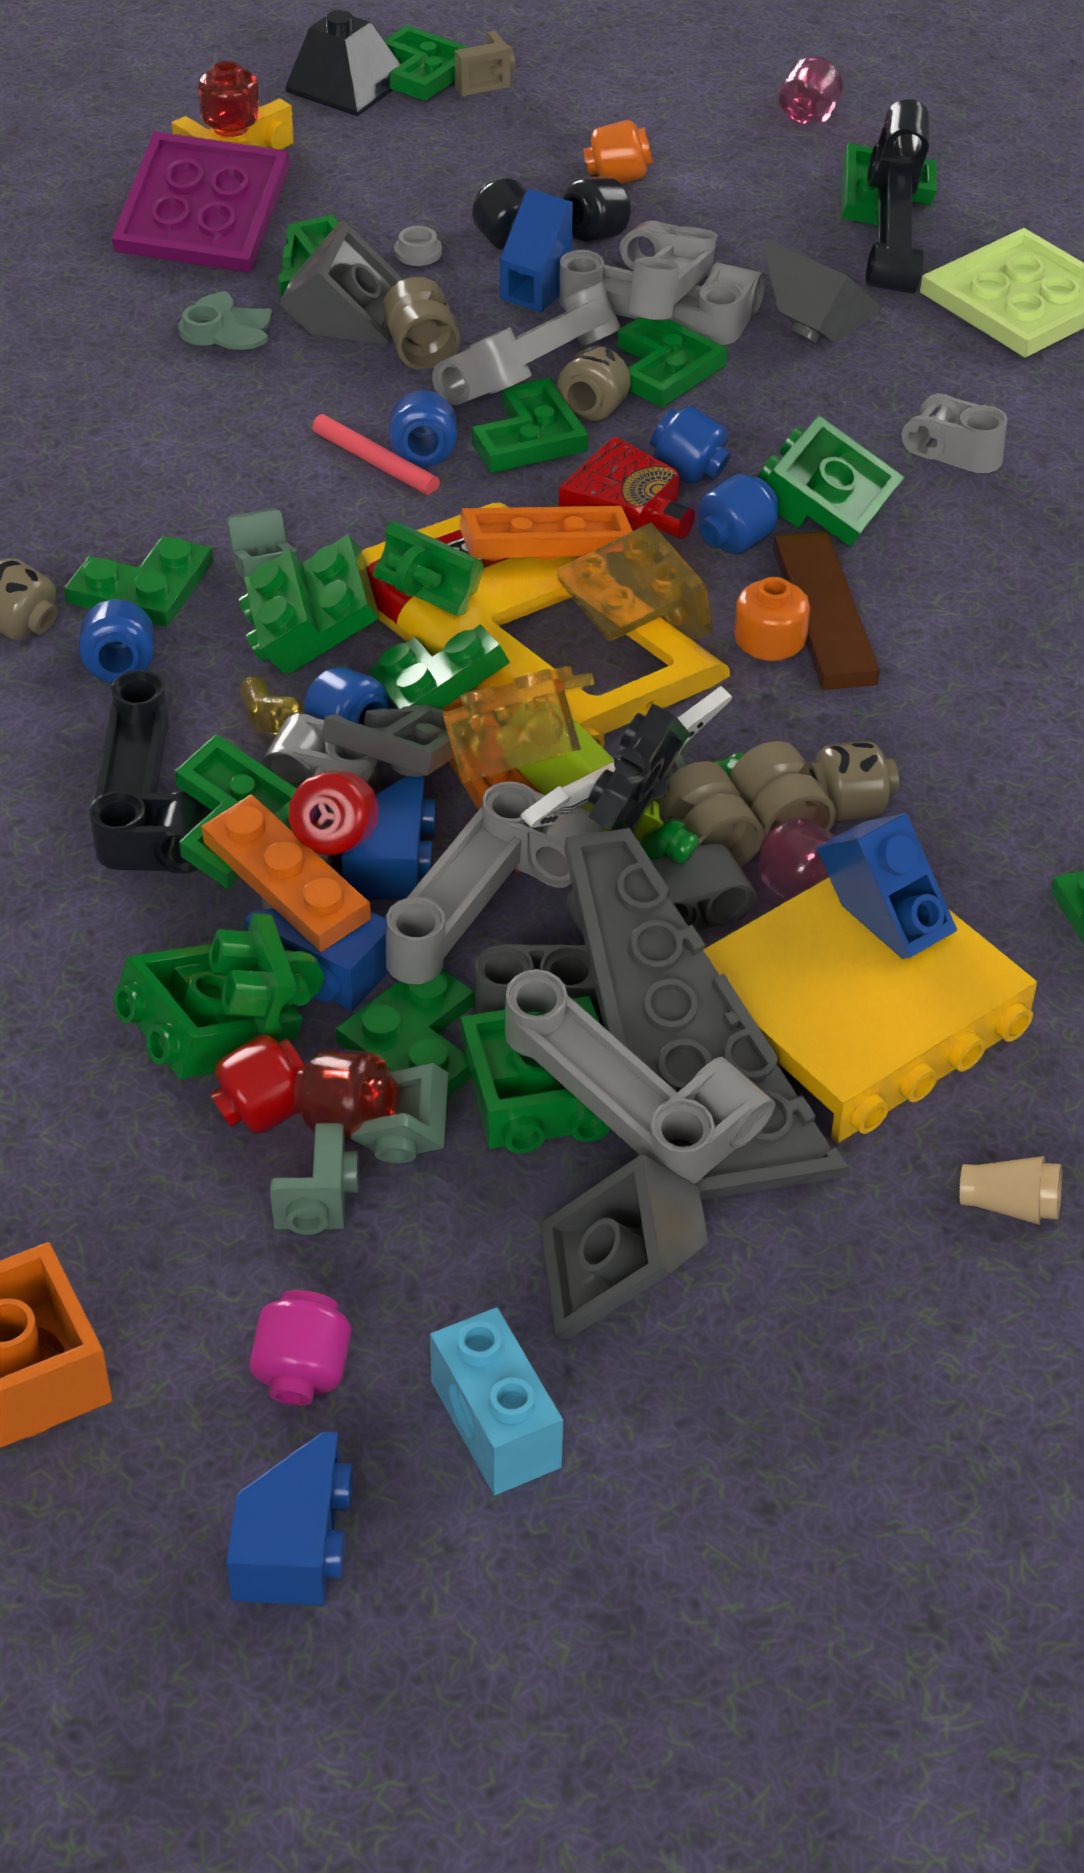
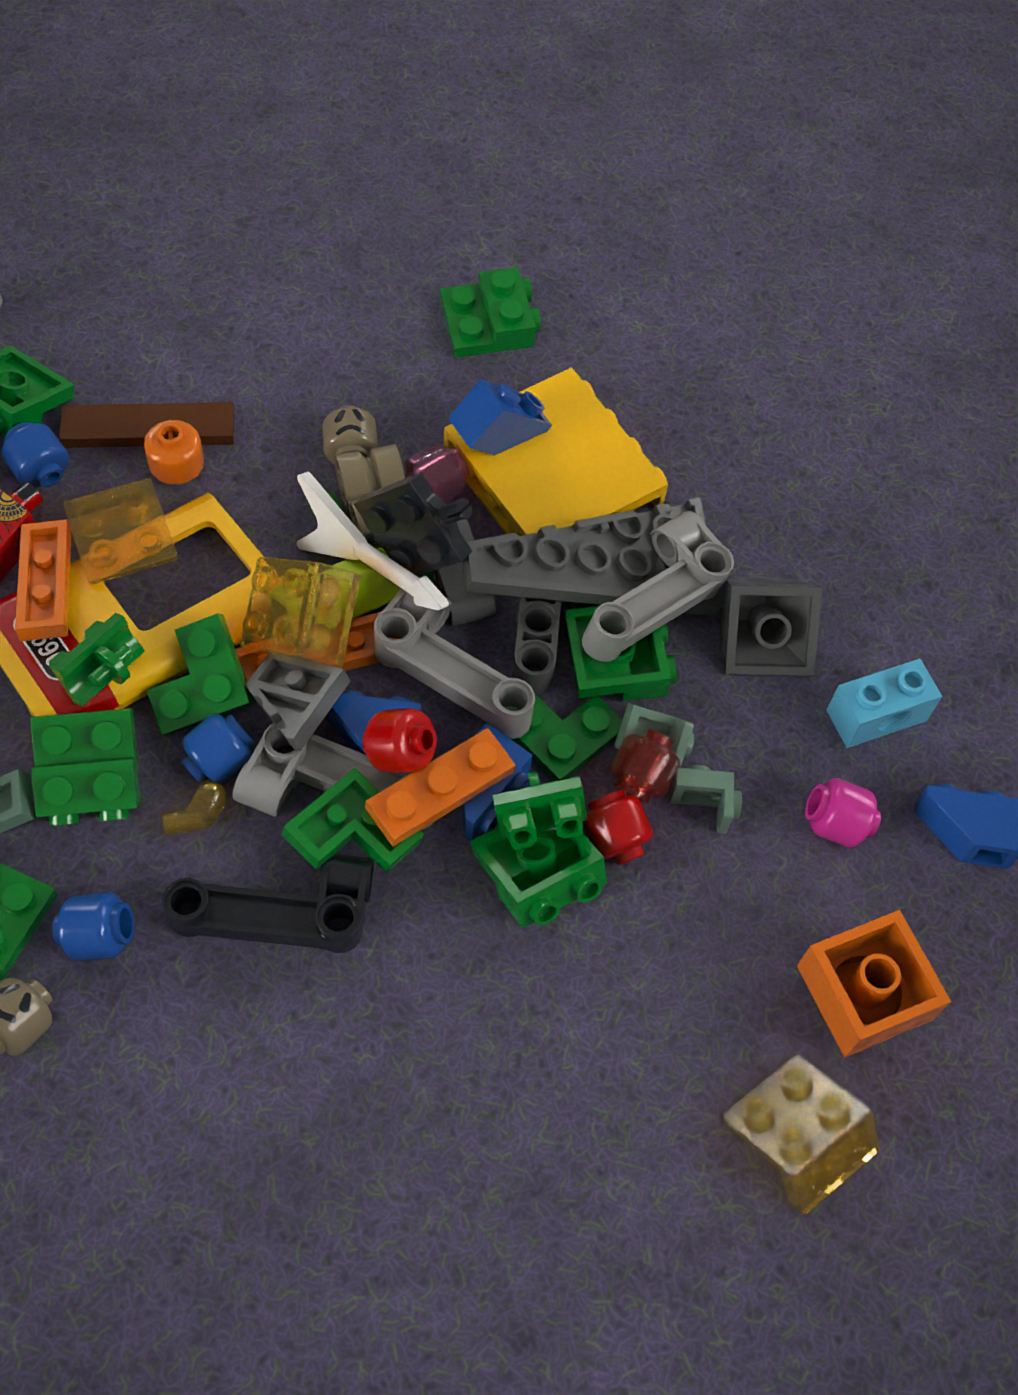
camera: 90 degrees left, 15 degrees up
(1014, 1188) = (713, 419): tan cone -> none

